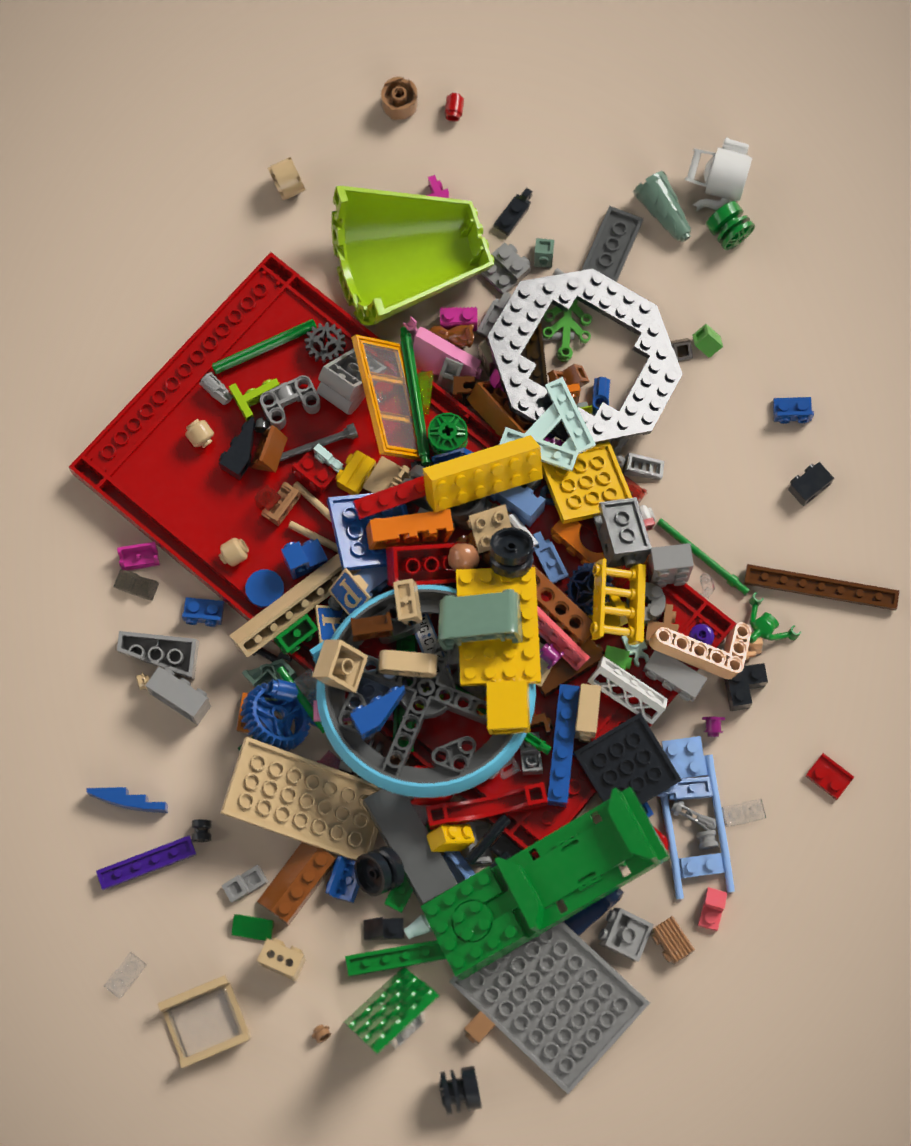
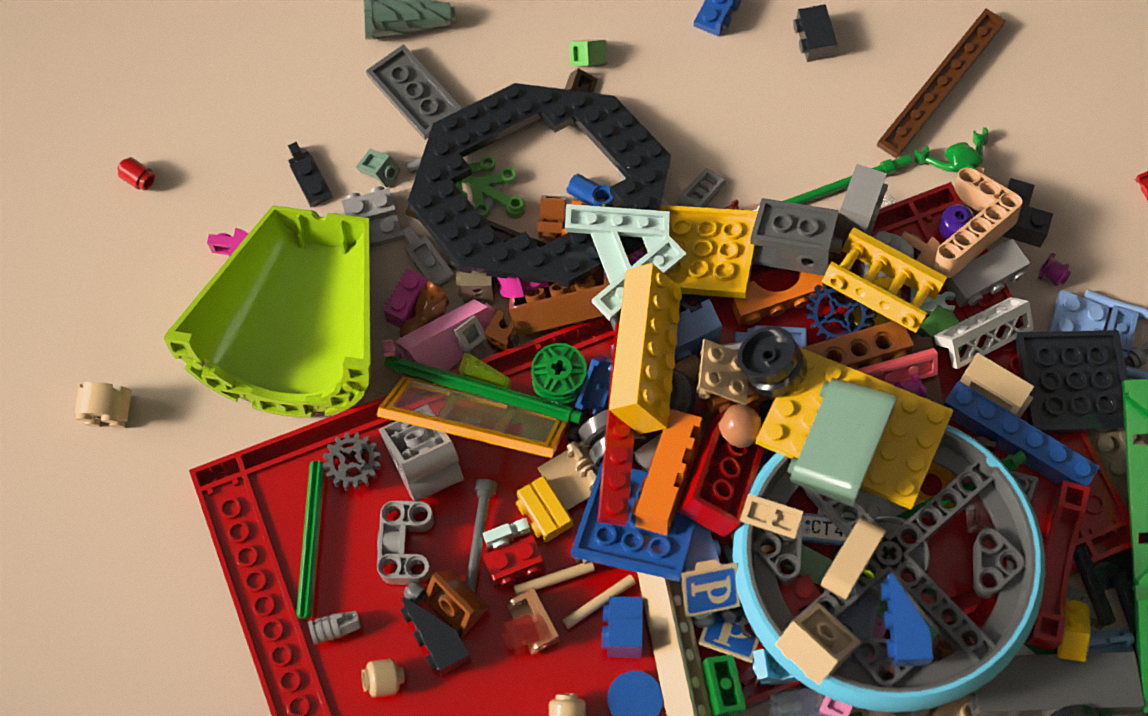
camera: 60 degrees left, 5 degrees down
(251, 396) = (371, 588): lime bracket -> none
(371, 627) = (781, 577): reddish brown hinge -> none
(399, 98) = (85, 226): medium nougat brick -> none
(508, 706) = (970, 463): yellow brick -> none

